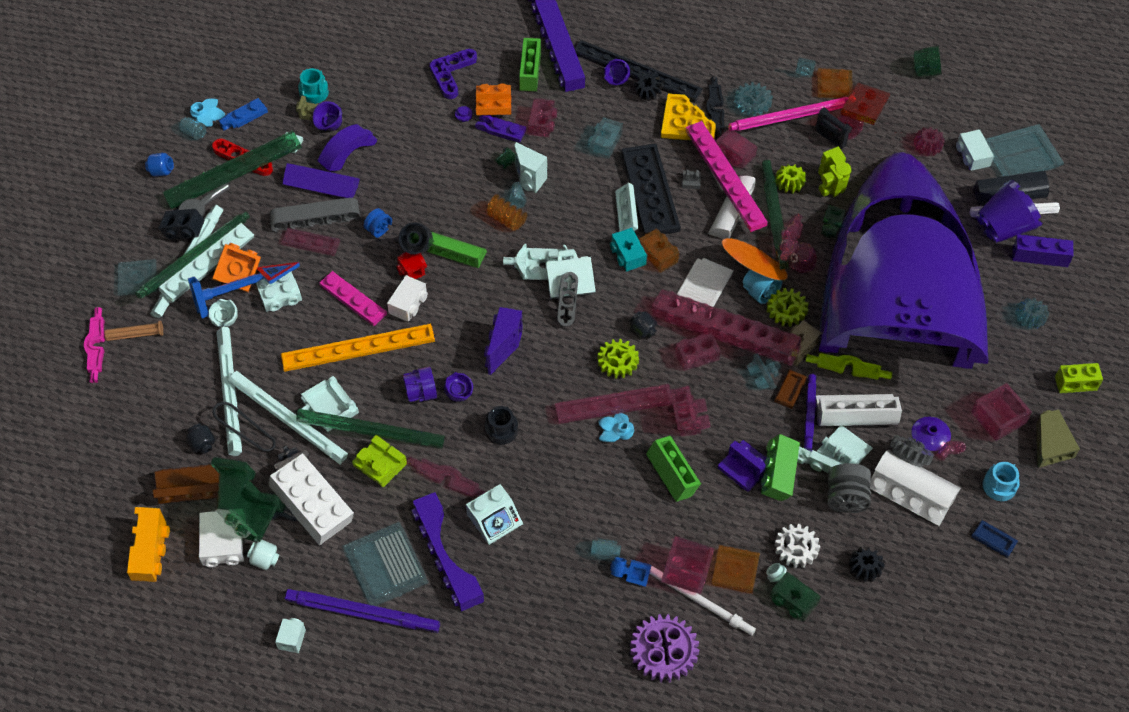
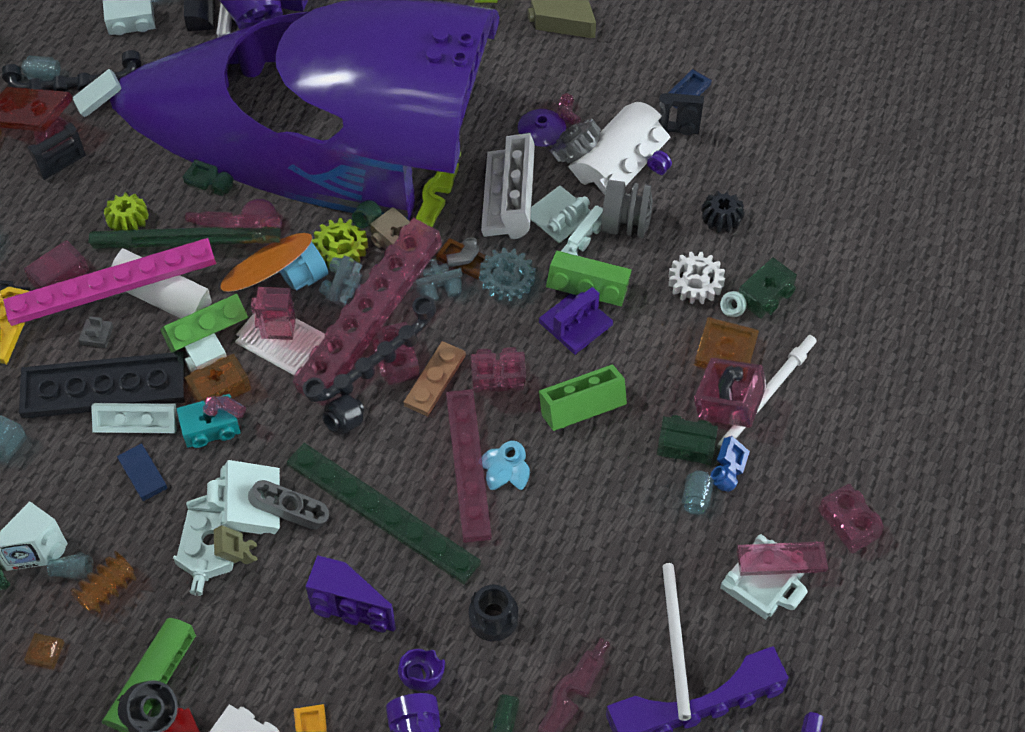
camera: 85 degrees left, 0 degrees up
(462, 193) = (44, 651): none -> clear orange tile
(494, 514) = (636, 631): light aqua slope -> none
(520, 534) = (676, 643): none -> white piece
(534, 271) = (231, 547): none -> olive plate
(542, 596) = (764, 592): none -> light aqua piece
(553, 602) = (782, 558): none -> clear pink tile
(572, 359) = (384, 513): none -> clear green plate
(589, 221) = (142, 472): none -> dark blue tile
(590, 651) = (845, 520): none -> clear pink brick
(616, 356) = (381, 454): lime gear -> none
(636, 251) = (225, 403): none -> clear pink arm
(644, 650) = (839, 436): medium lavender gear -> none
(648, 541) = (687, 439): none -> clear green brick
(680, 378) = (434, 378): none -> medium nougat plate
(681, 239) = (204, 352): none -> light aqua brick
(688, 555) = (727, 379): none -> black arm
(701, 233) = (204, 323): none -> bright green brick
(713, 270) = (274, 313): none -> clear pink brick
(713, 349) = (315, 388): none -> black bar
(752, 310) = (344, 282): none -> clear light blue hips
(776, 422) = (507, 274): none -> clear light blue gear
(786, 114) = (18, 212): dark pink piece -> none
(794, 388) = (466, 255): none -> dark grey arm
(810, 414) = (492, 238): dark purple piece -> none
(811, 316) = (371, 211): none -> clear green piece
(834, 172) = (135, 157): lime hips -> none
(894, 143) = (97, 93): none -> light aqua tile
(905, 134) = (13, 73): none -> black bar
(908, 516) = (659, 162): none -> dark purple bush
(910, 108) = (41, 67): none -> clear light blue brick
(929, 141) = (101, 56): clear pink gear -> none
(956, 524) = (688, 113): none -> black plate
(1001, 411) = (527, 50): clear pink piece -> none
(1001, 481) = (617, 67): medium azure piece -> none

